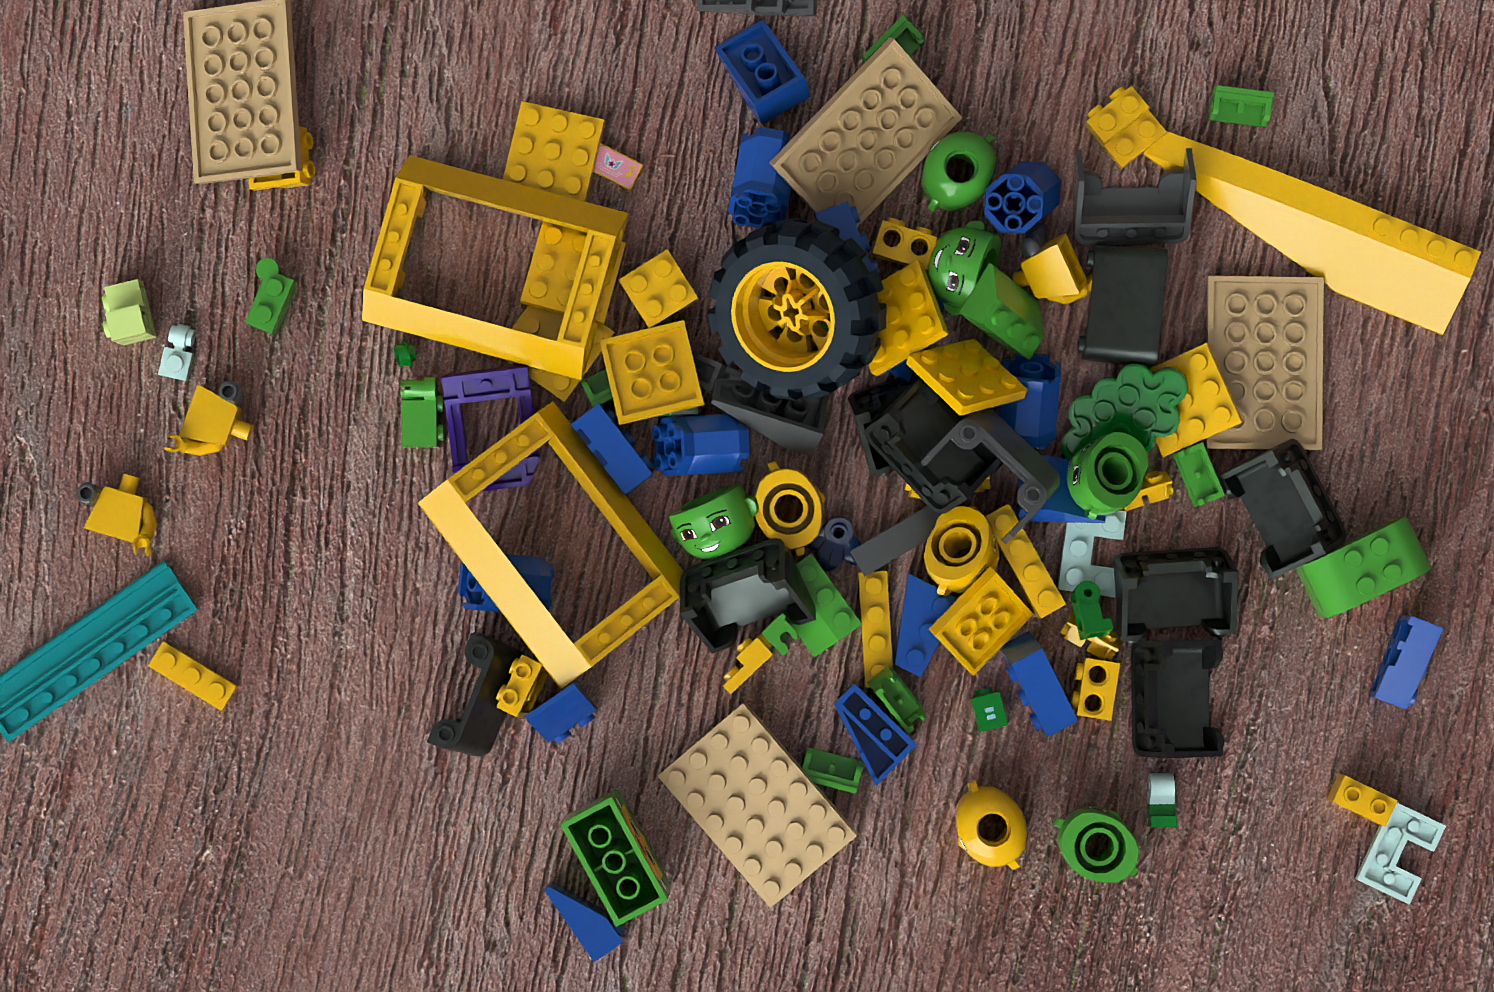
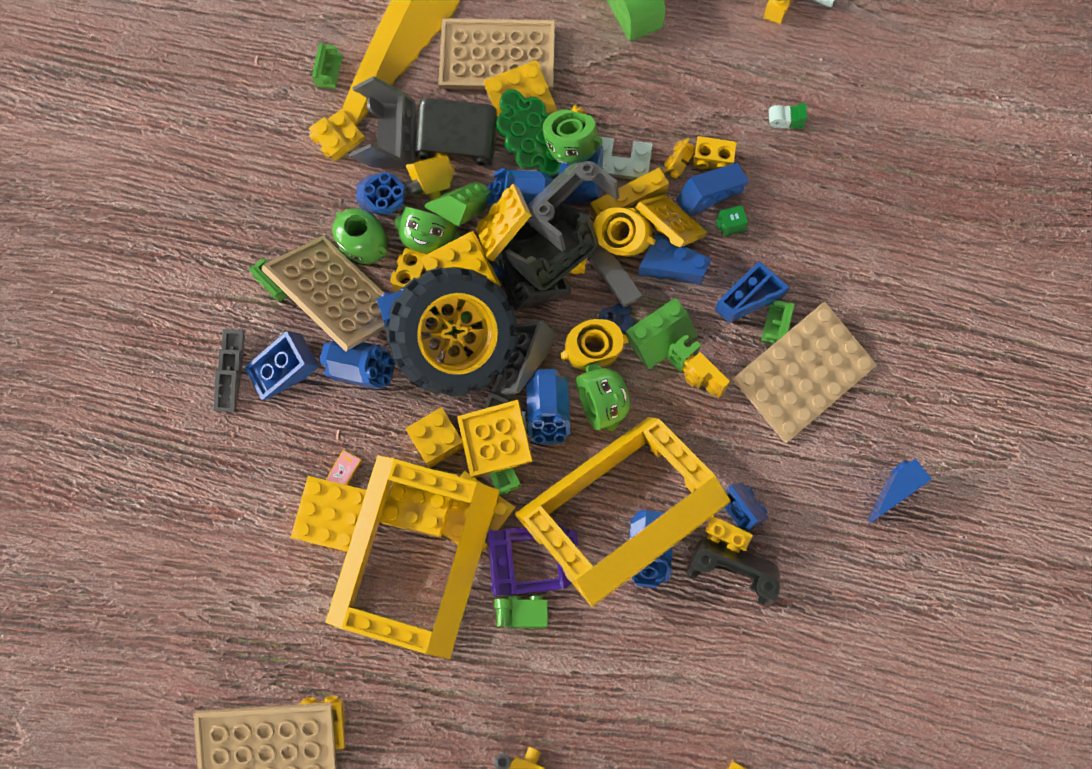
camera: 90 degrees left, 15 degrees down
(272, 297) = (429, 730): bright green hinge -> none
(404, 354) = (476, 626): green plate -> none
(613, 448) = (549, 469): blue wedge -> none
(617, 857) = (852, 463): bright green brick -> none
(742, 590) = (651, 374): pearl dark grey windscreen -> none
(875, 623) = (685, 293): yellow plate -> none
(897, 698) = (725, 279): bright green hinge -> none
(969, 812) = (805, 230): yellow piece -> none
(1088, 611) = (662, 153): green leg -> none
(1115, 862) = (821, 149): bright green piece -> none
(1173, 698) = (720, 111): pearl dark grey windscreen -> none
(1175, 591) = (647, 104): pearl dark grey windscreen -> none
(1198, 474) = (570, 91): bright green hinge -> none
(1286, 507) = (594, 40): pearl dark grey windscreen -> none

